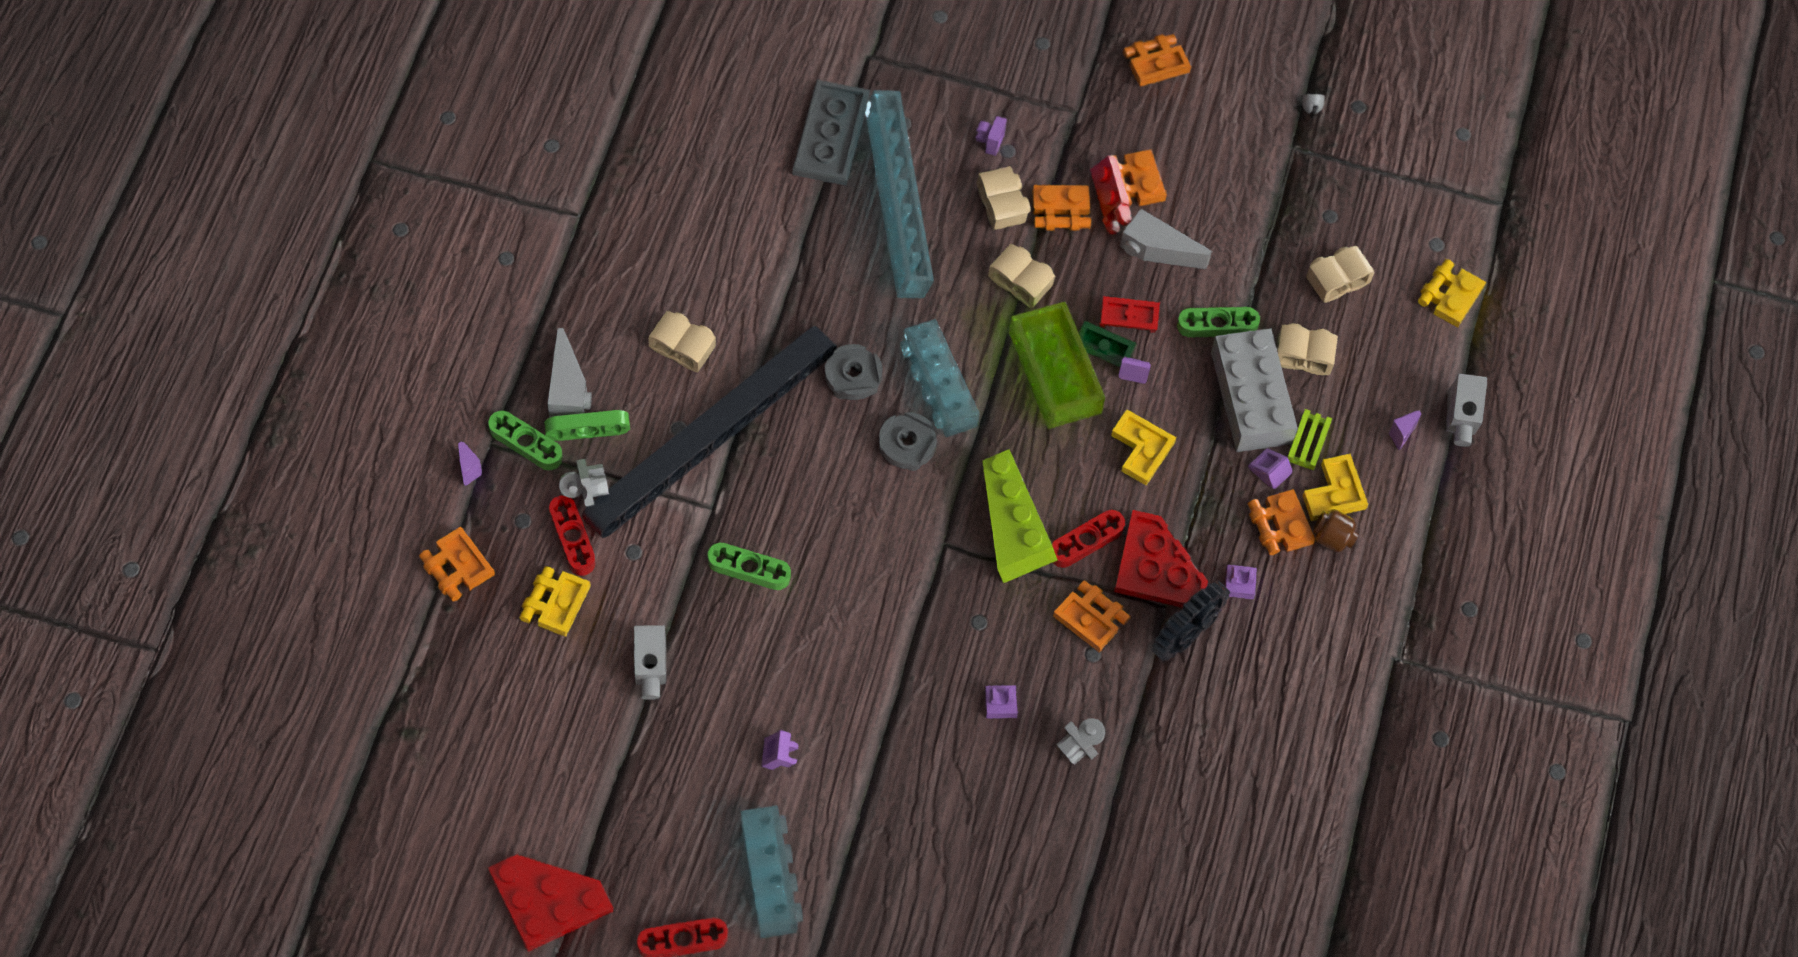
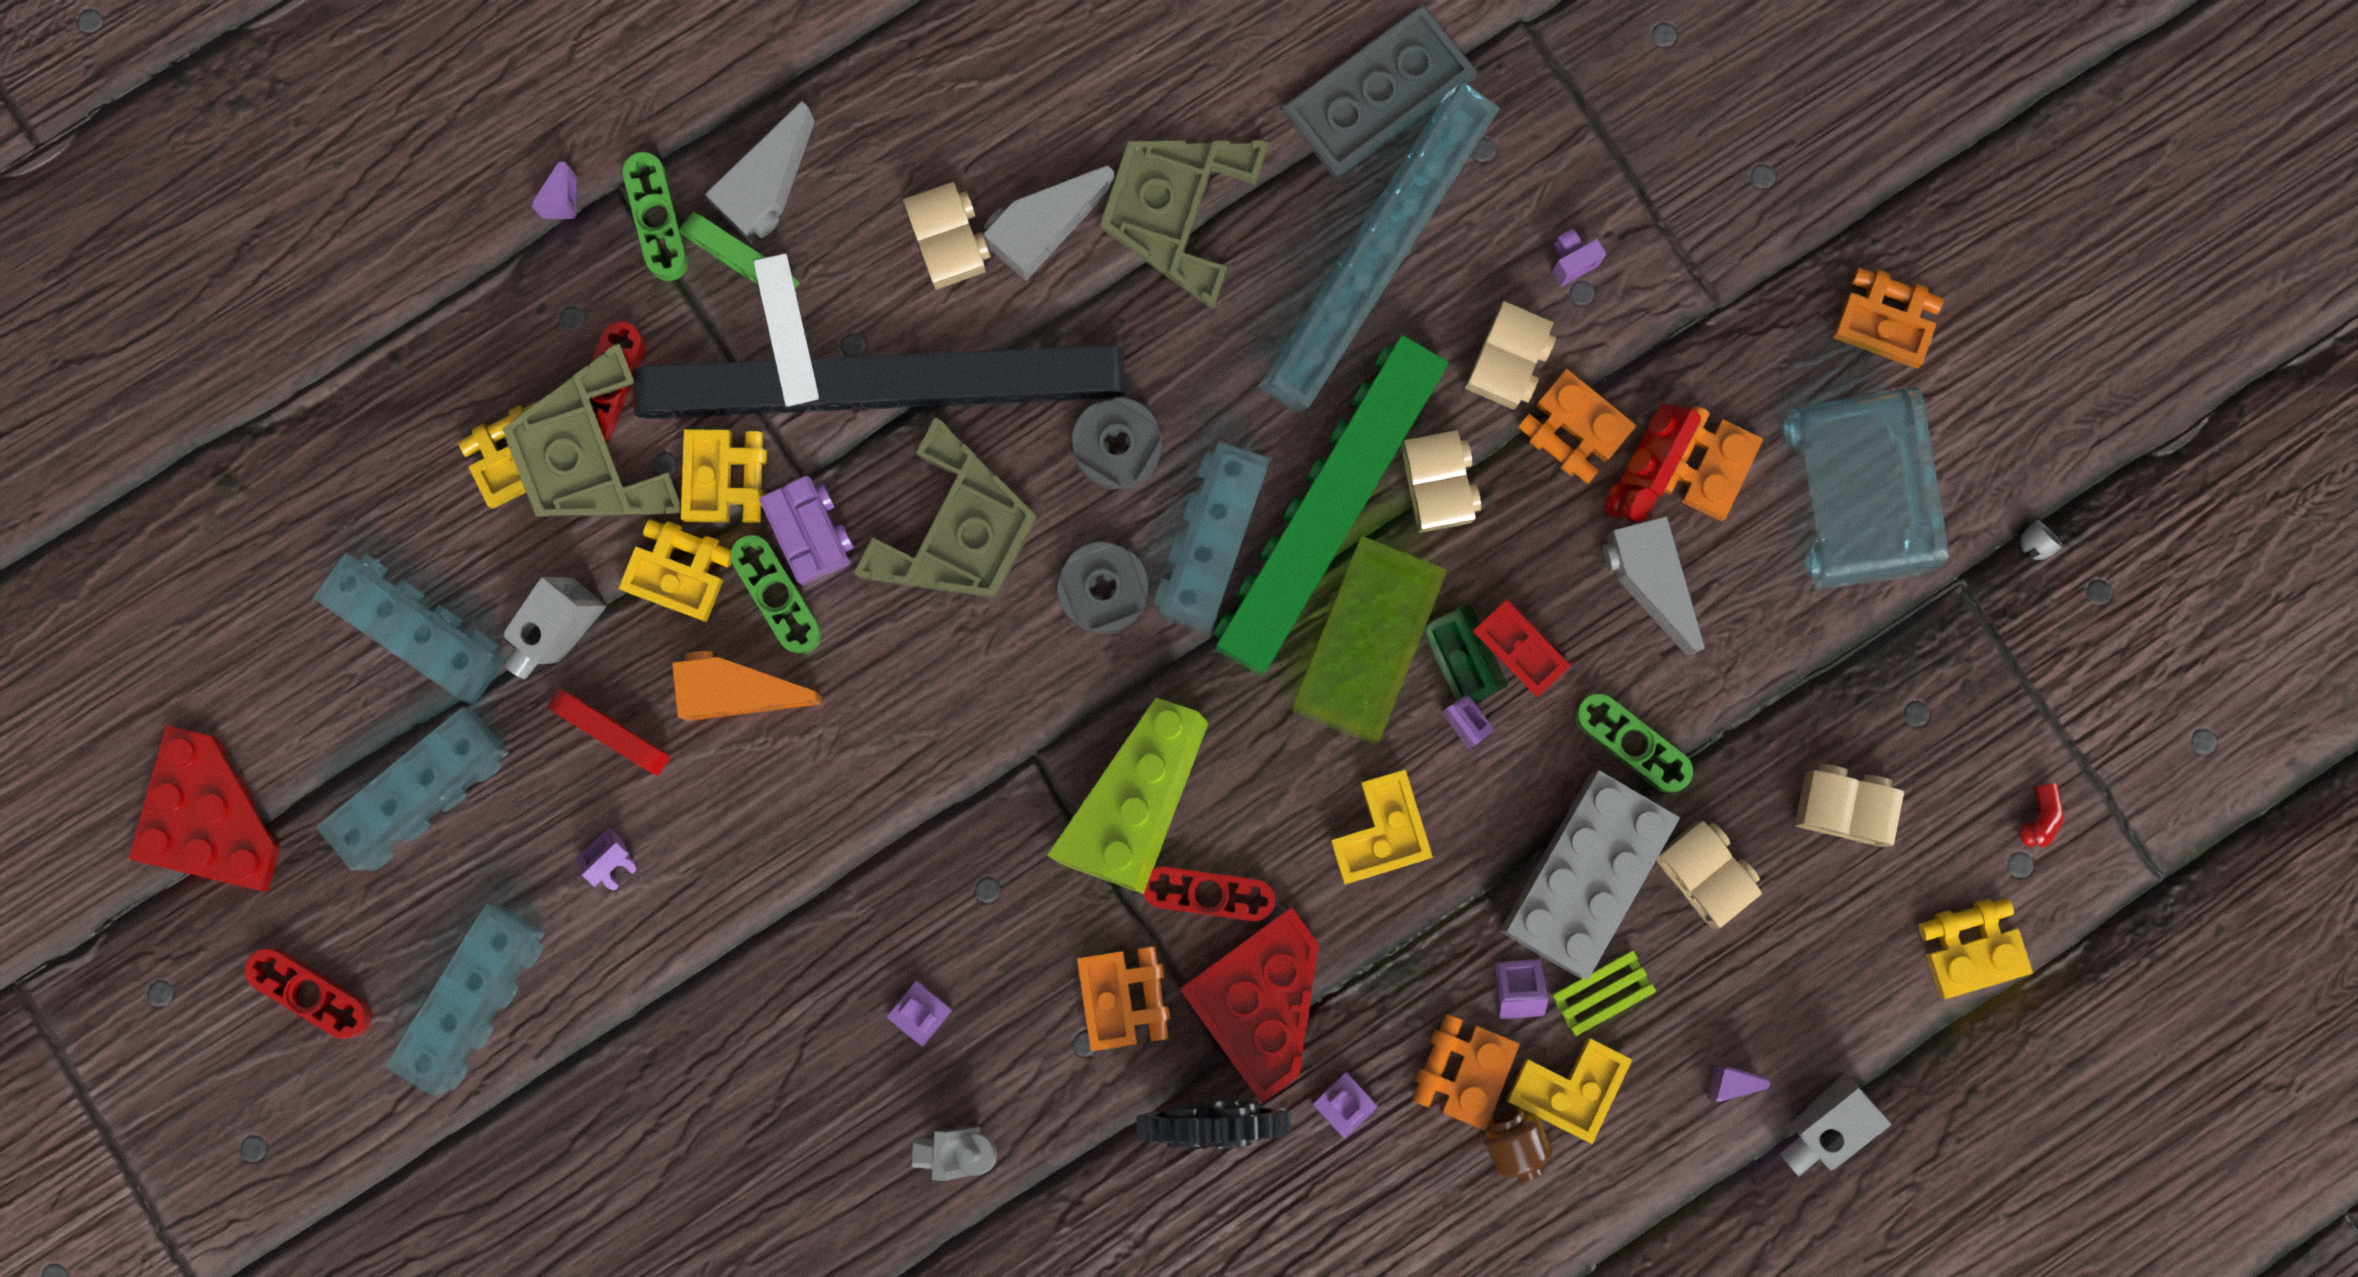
camera: 45 degrees right, 20 degrees up
(463, 557) = (455, 317): orange plate -> none
(576, 720) = (410, 628): none -> clear light blue brick
(588, 482) = (665, 334): light grey hips -> none
(589, 574) = (567, 459): none -> olive wing
(645, 435) = (786, 330): none -> white sticker
(650, 794) = (413, 791): none -> clear light blue brick
(665, 537) = (708, 476): none -> yellow plate
(689, 599) = (672, 583): none -> yellow plate
(723, 300) = (1040, 222): none -> light grey slope
(724, 690) = (608, 731): none -> red beam
(738, 522) = (806, 530): none -> medium lavender brick
(770, 621) = (722, 688): none -> orange slope
(773, 253) = (1160, 198): none -> olive wing
(822, 465) = (972, 535): none -> olive wing
(982, 324) = (1331, 505): none -> green brick
(1220, 130) = (1870, 488): none -> clear light blue windscreen
(1427, 211) = (2048, 820): none -> red arm

